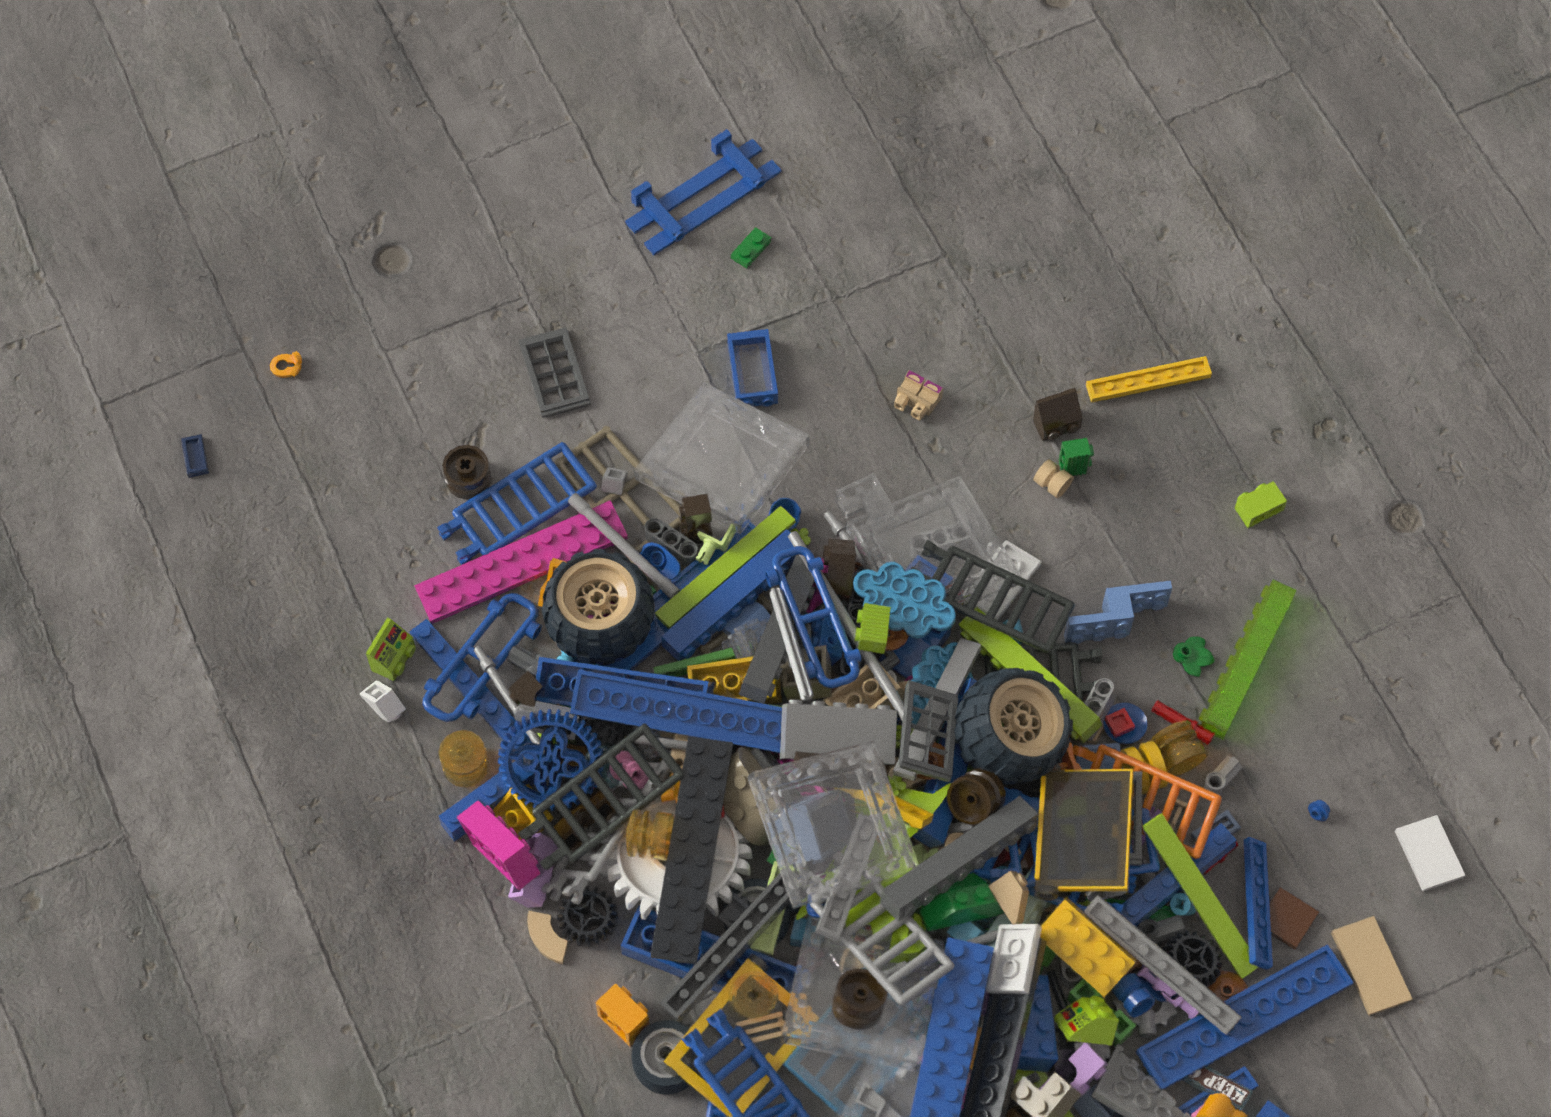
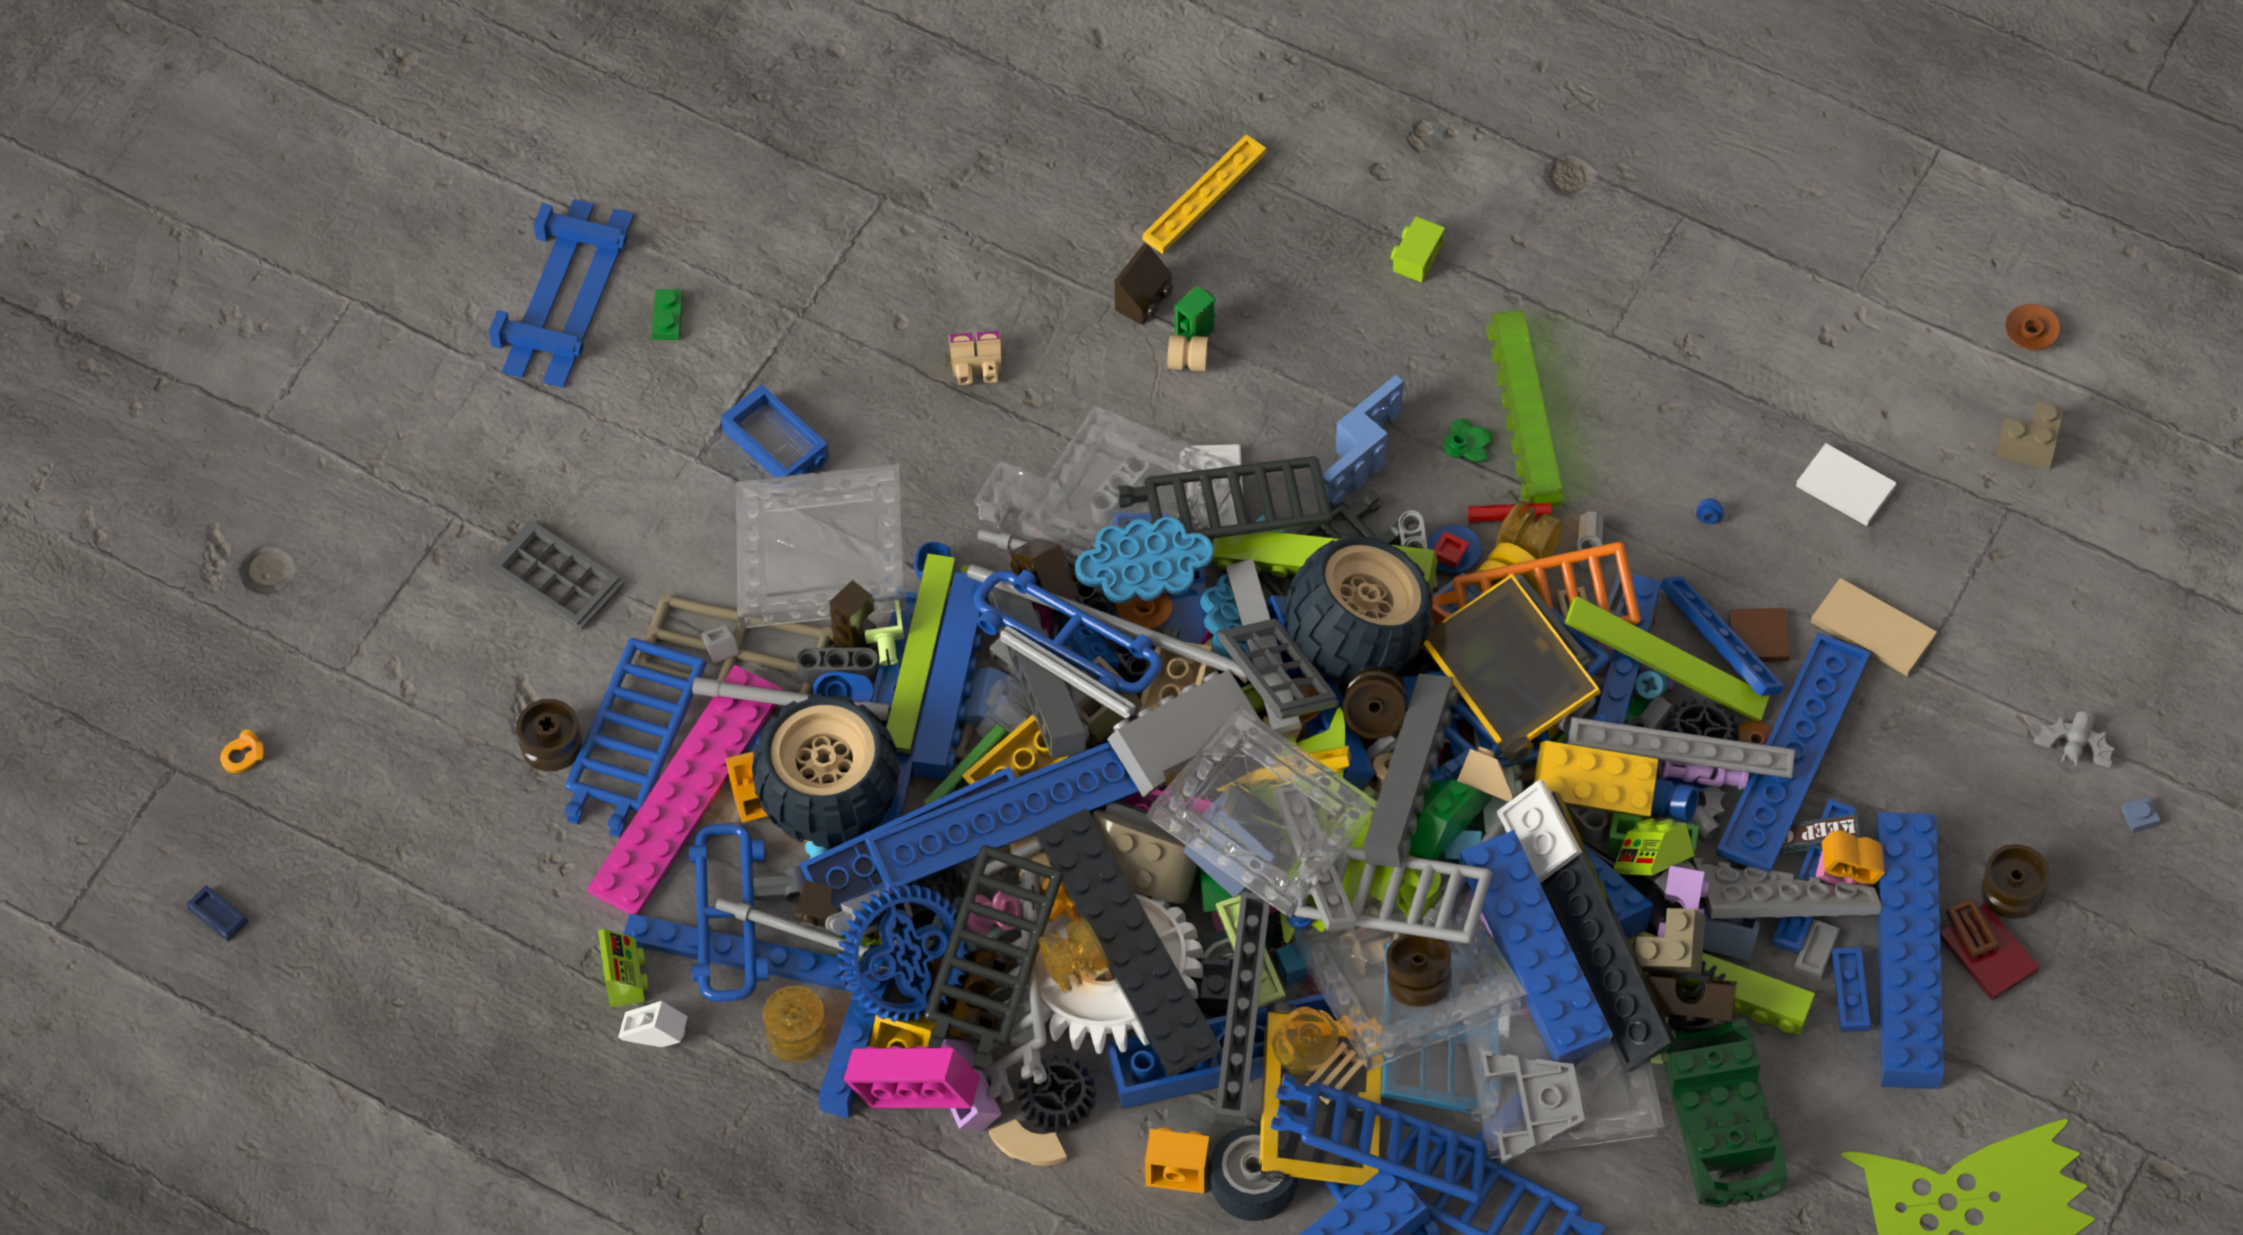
camera: 35 degrees left, 5 degrees down
(873, 628) = (1139, 603): lime brick -> none

